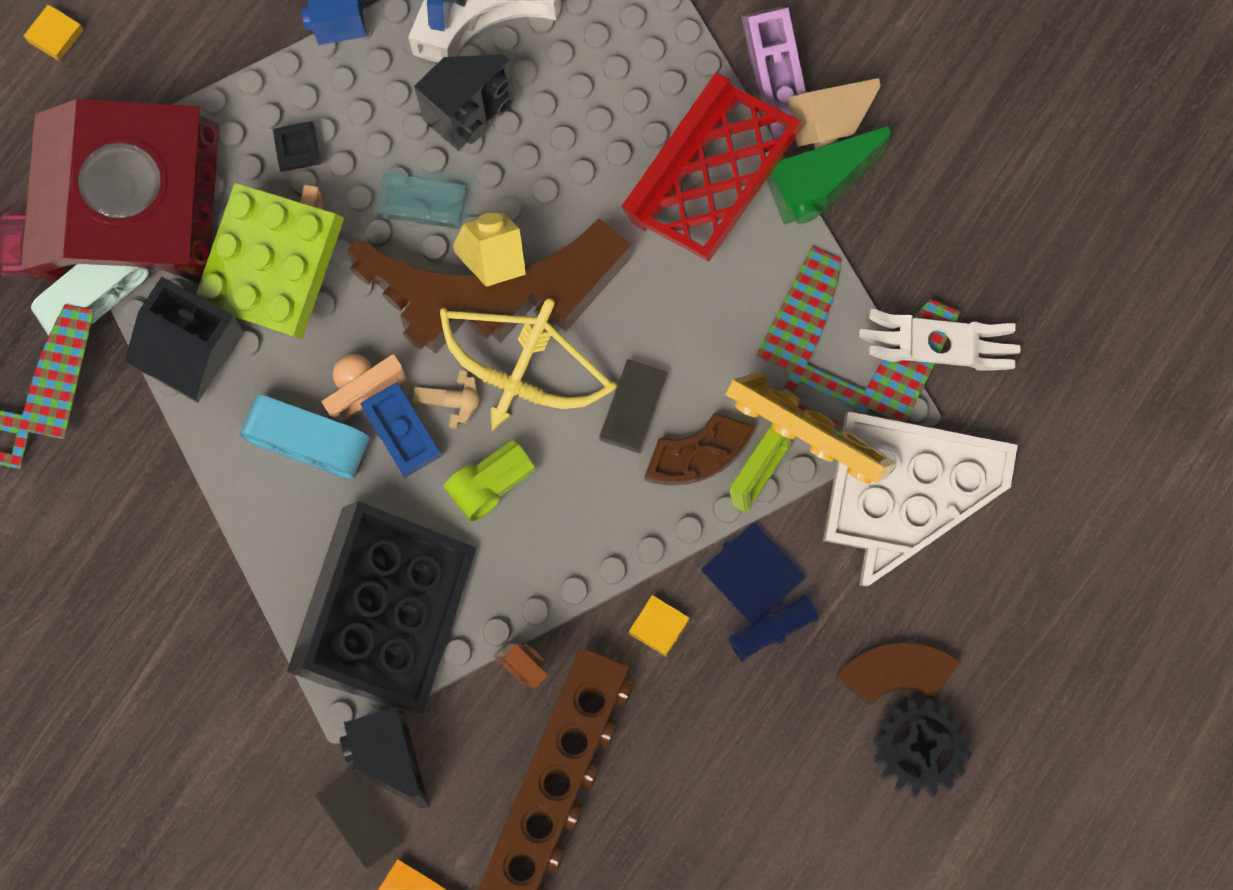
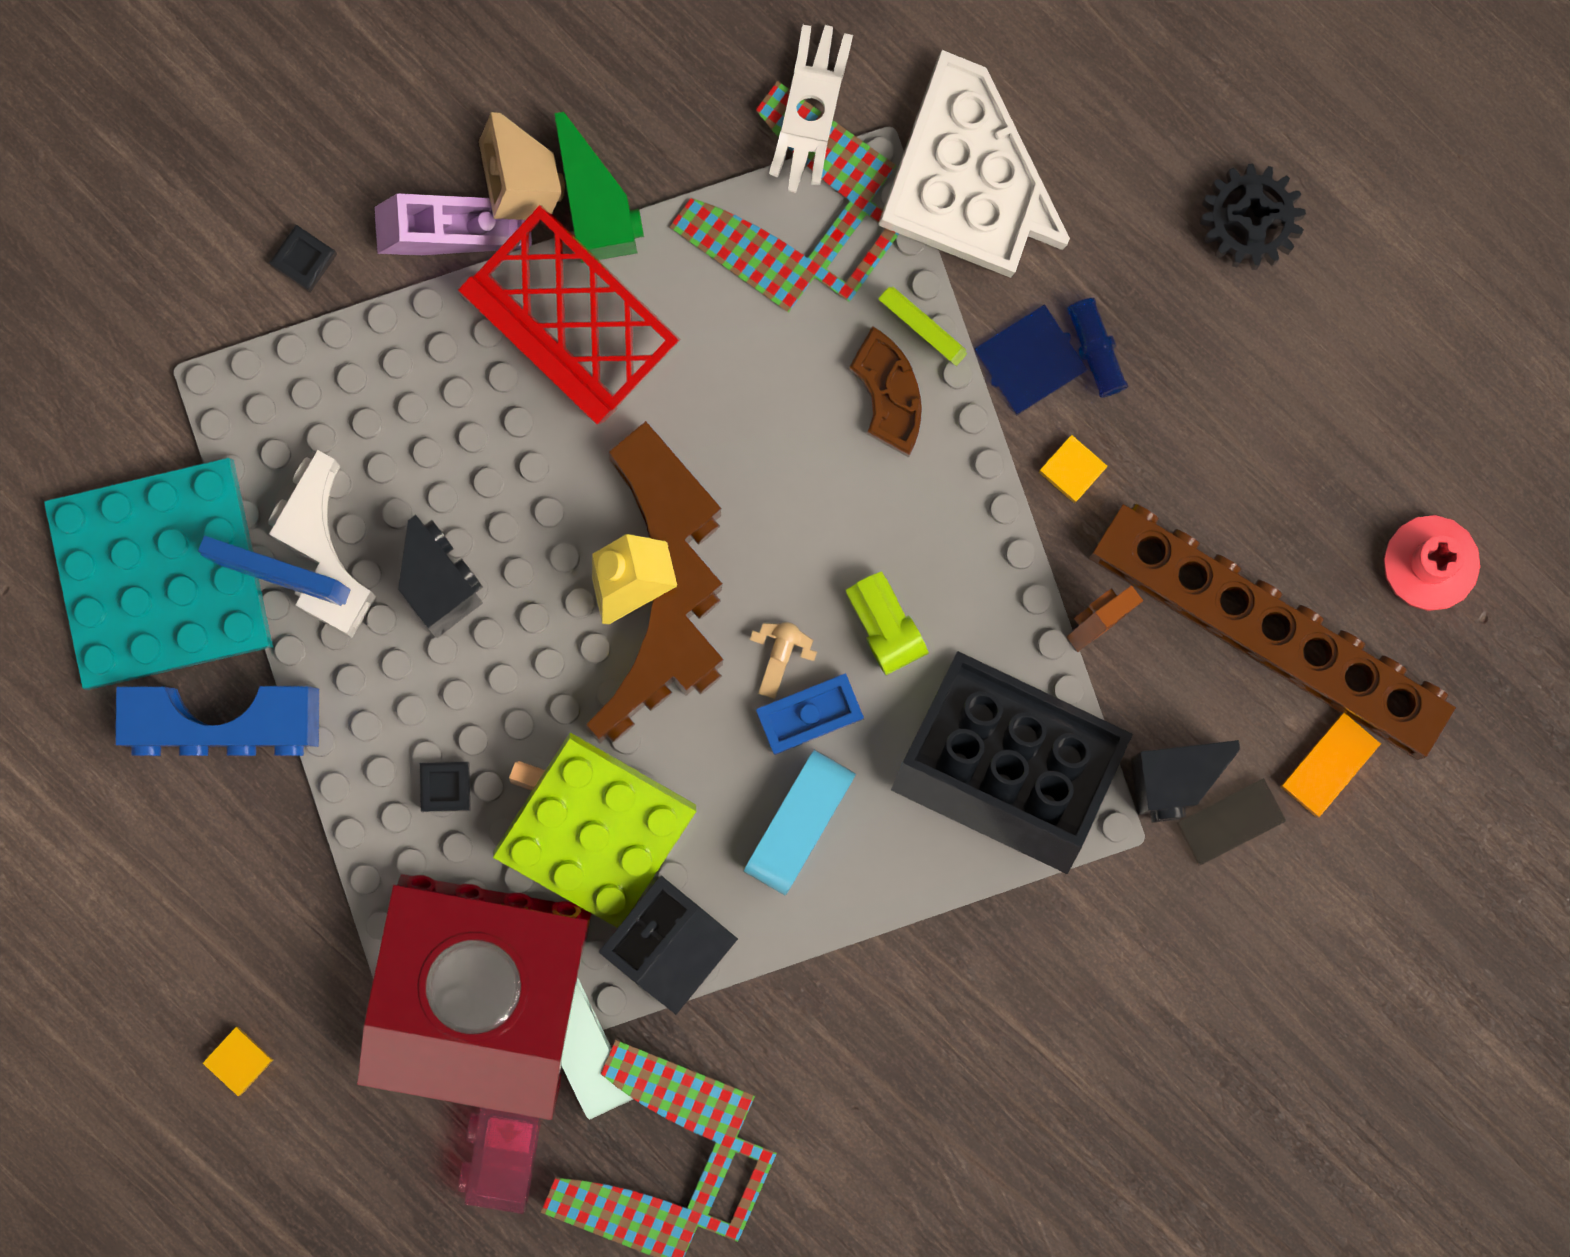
camera: 90 degrees left, 10 degrees up
(358, 382) = (741, 754): light nougat tile -> none
(421, 201) = (539, 653): clear light blue tile -> none
(532, 341) = (739, 549): light yellow piece -> none
(633, 406) = (823, 454): clear smoke tile -> none
(813, 427) = (897, 262): yellow wing -> none
(897, 668) = (1159, 226): reddish brown tile -> none

